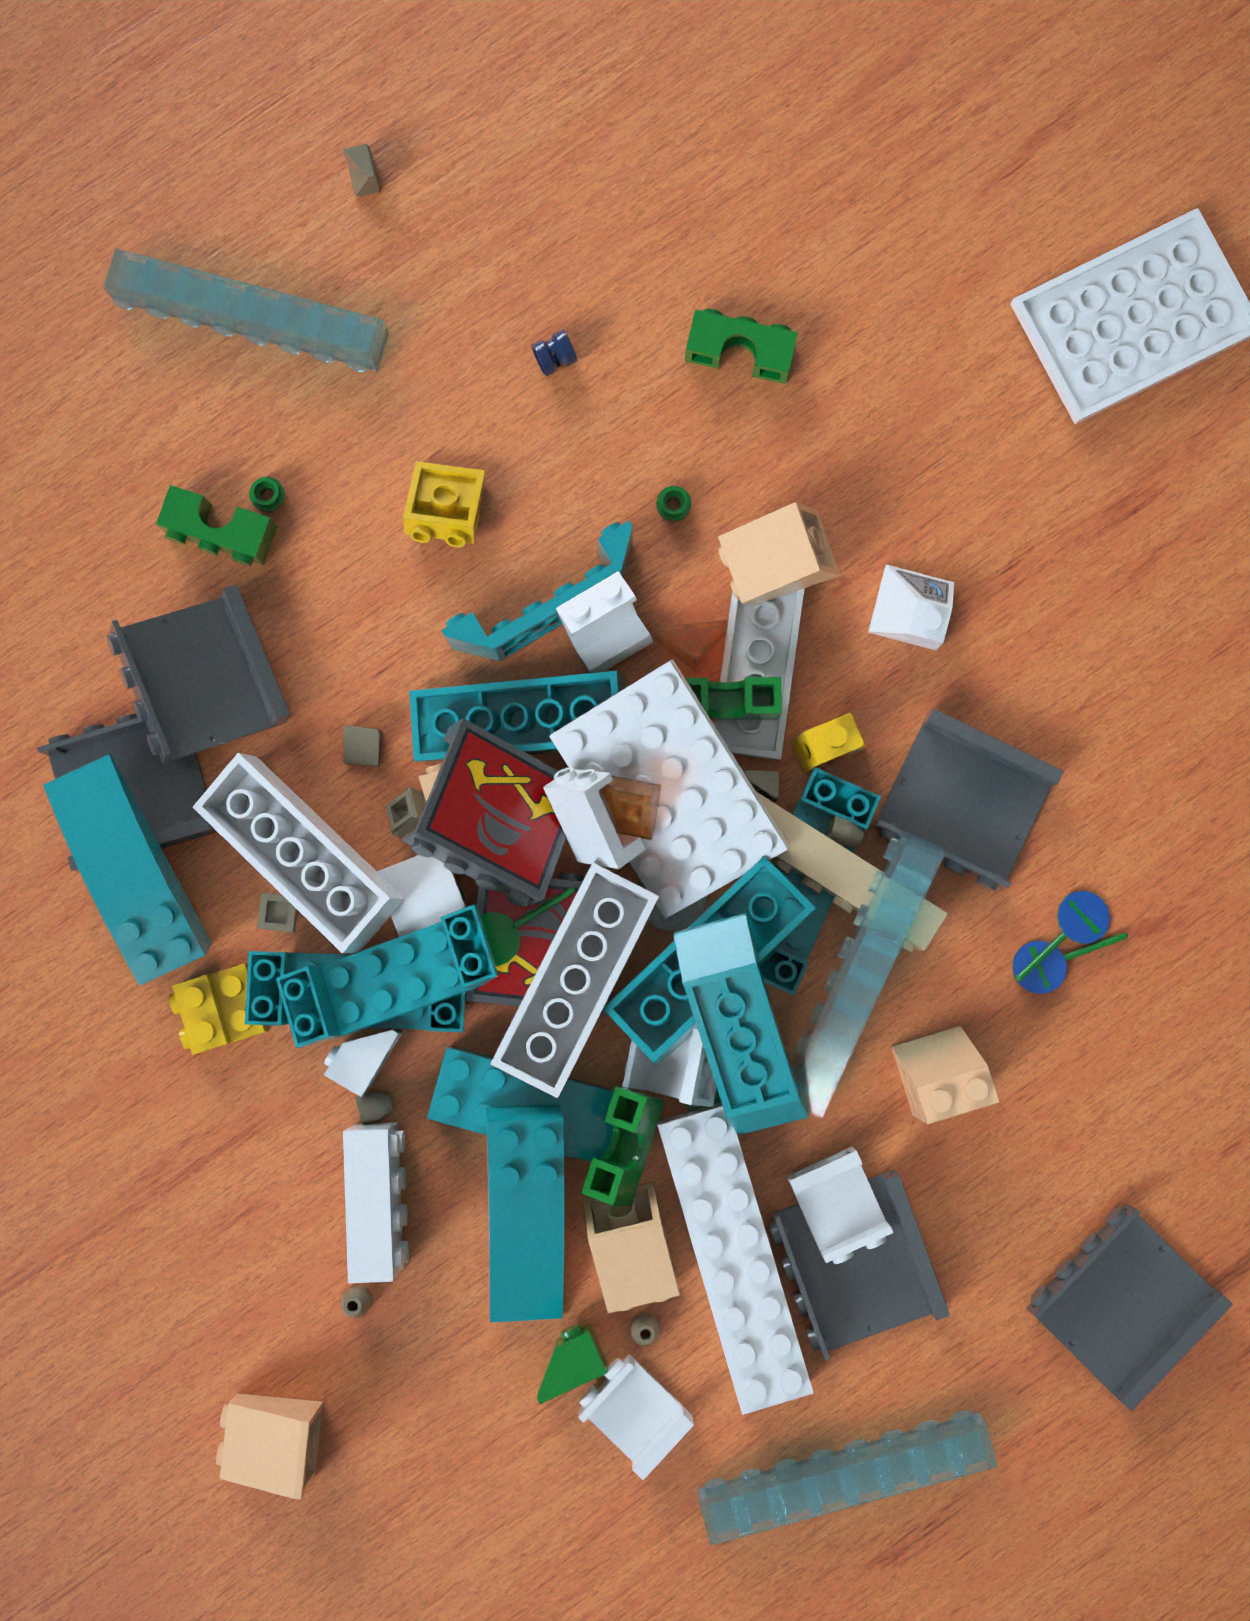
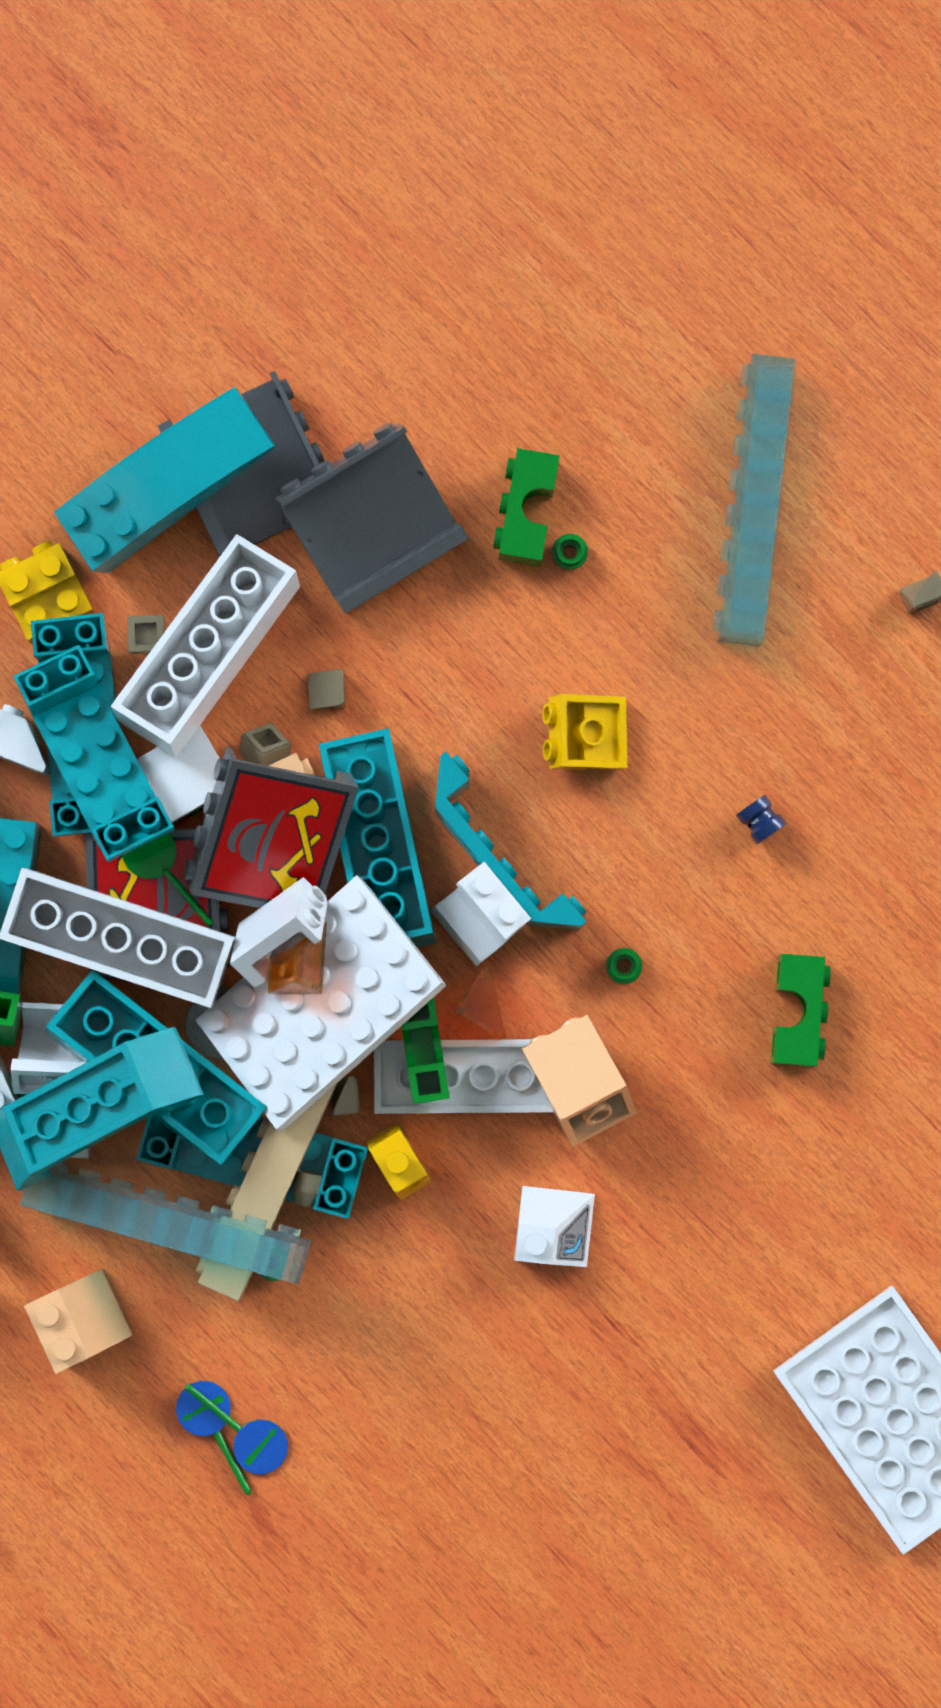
camera: 75 degrees right, 0 degrees up
(967, 798) = (360, 1309): dark grey panel -> none

